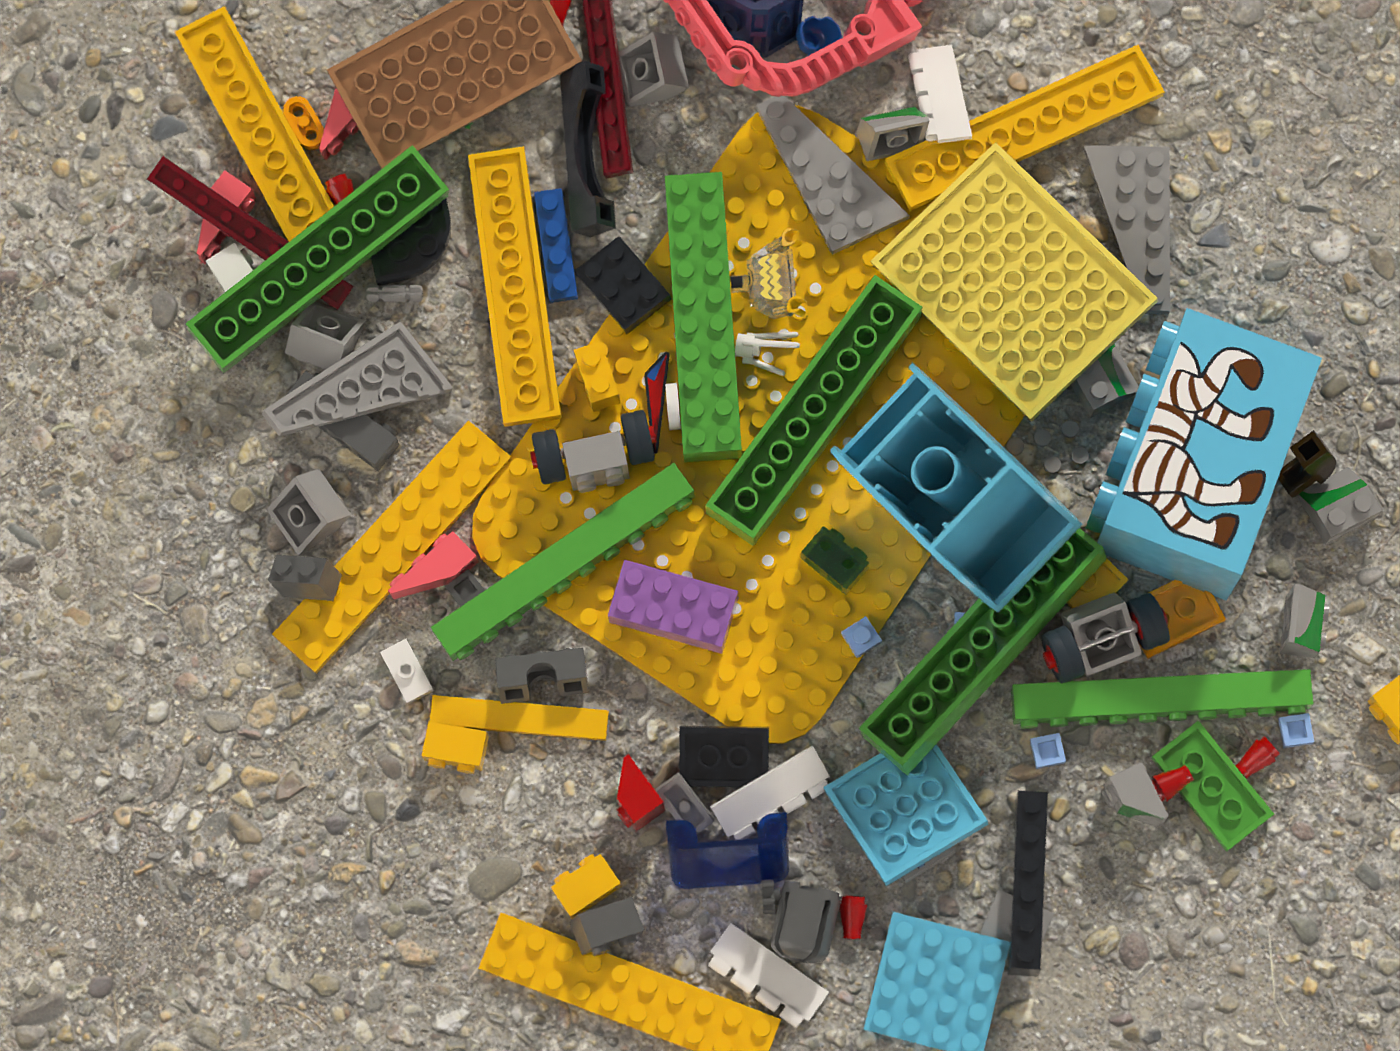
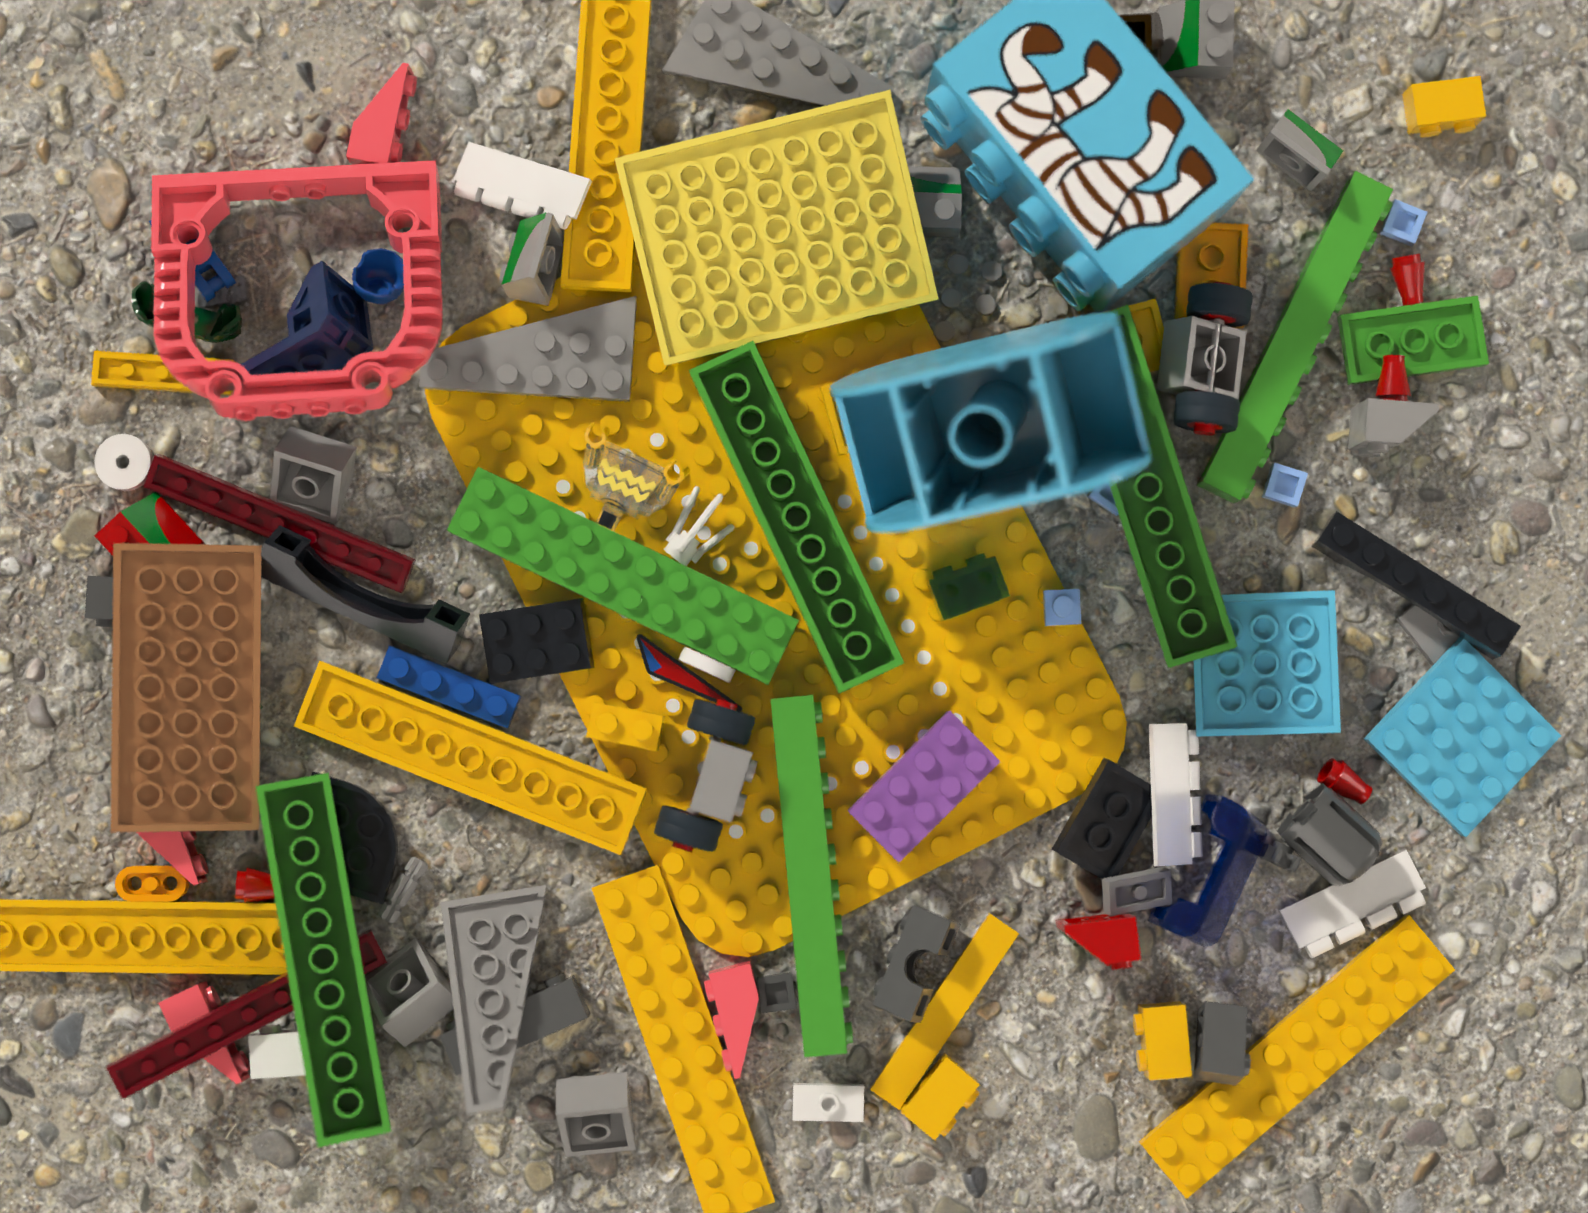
camera: 70 degrees left, 10 degrees up
(305, 577) = (670, 1160): dark grey brick -> none

